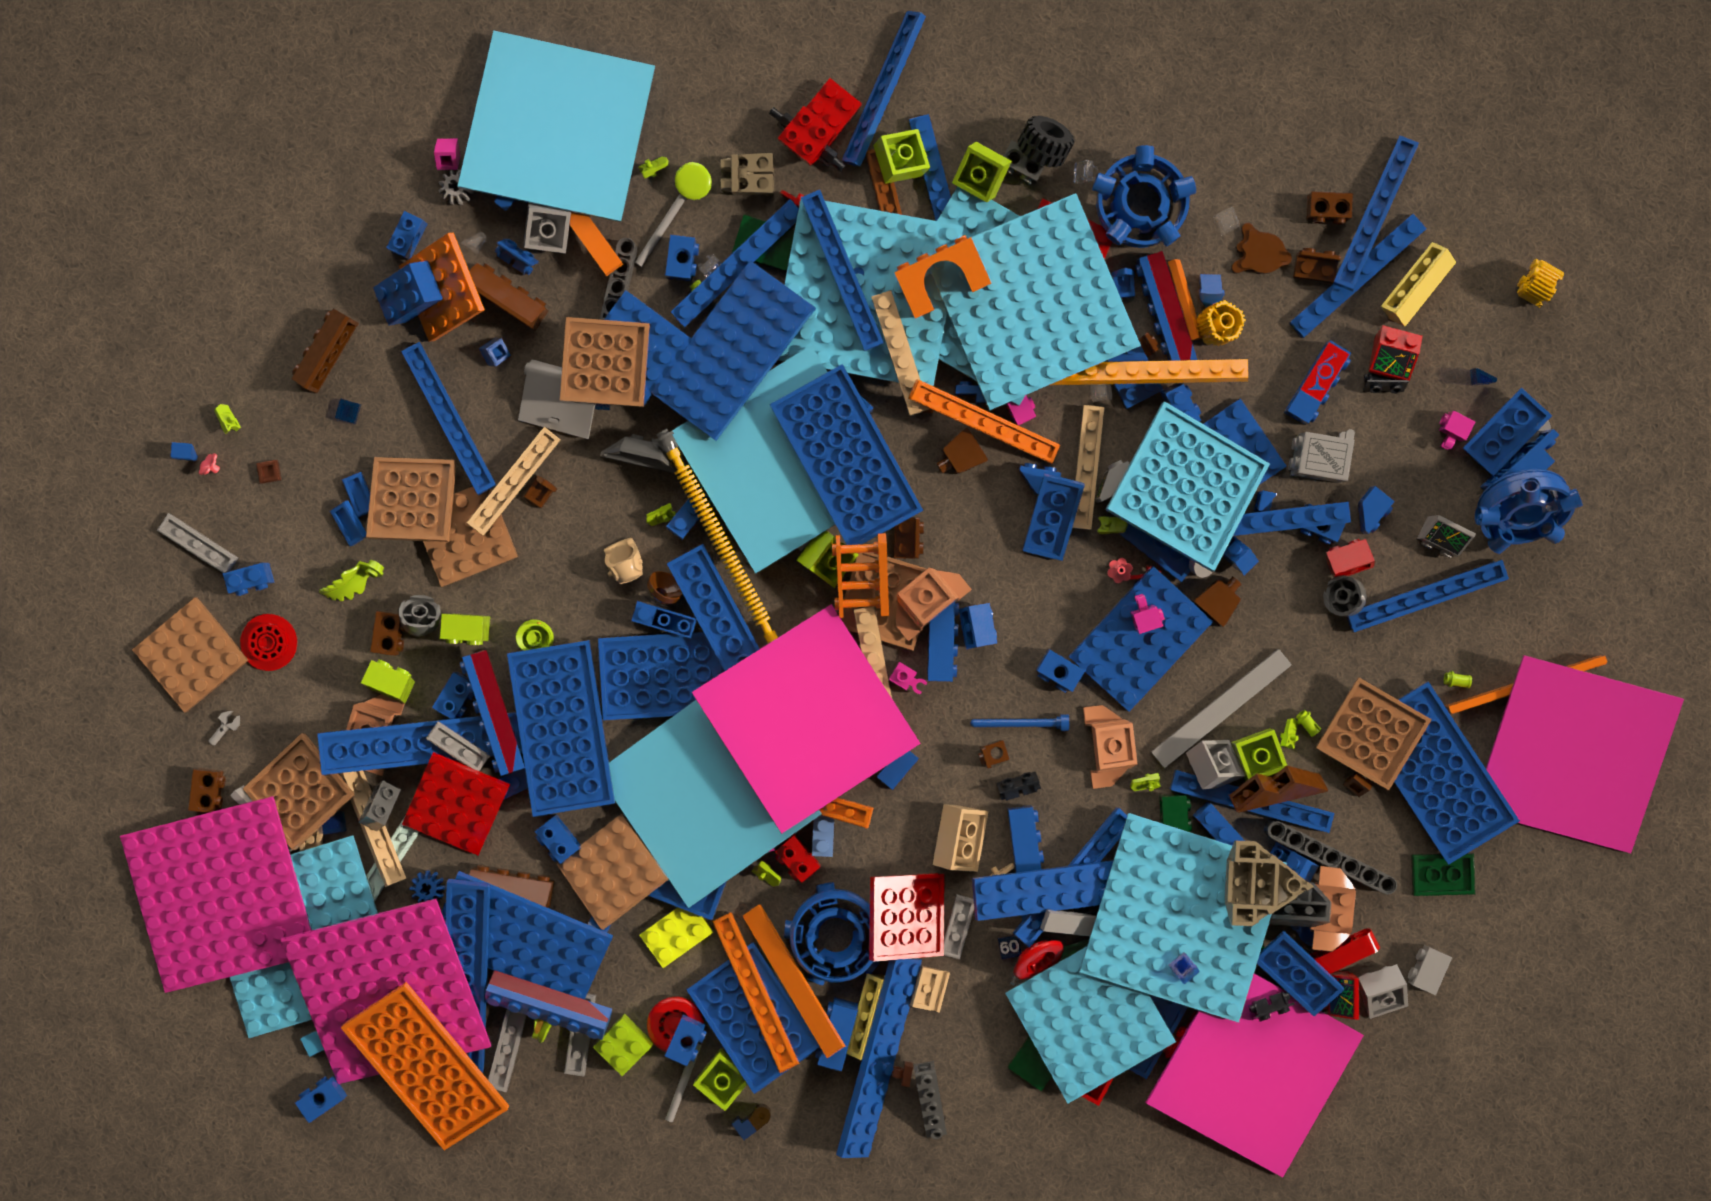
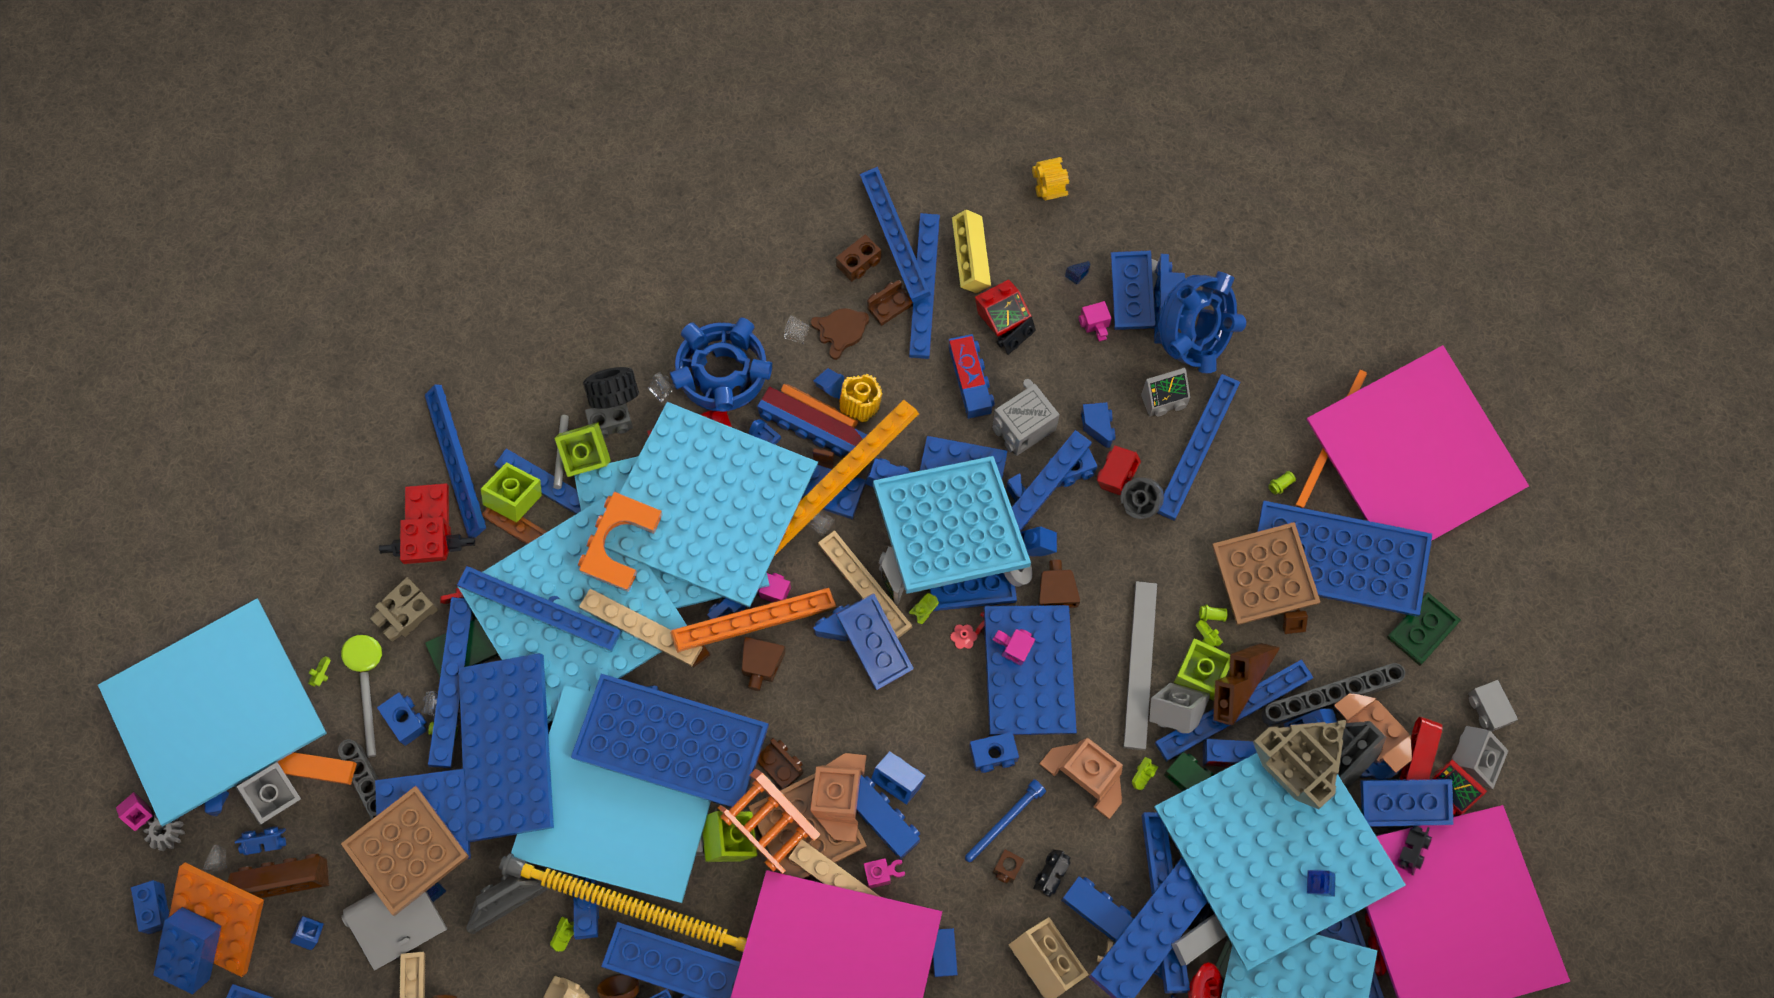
camera: 45 degrees left, 20 degrees down
(955, 165) = (559, 464): none -> light grey bar

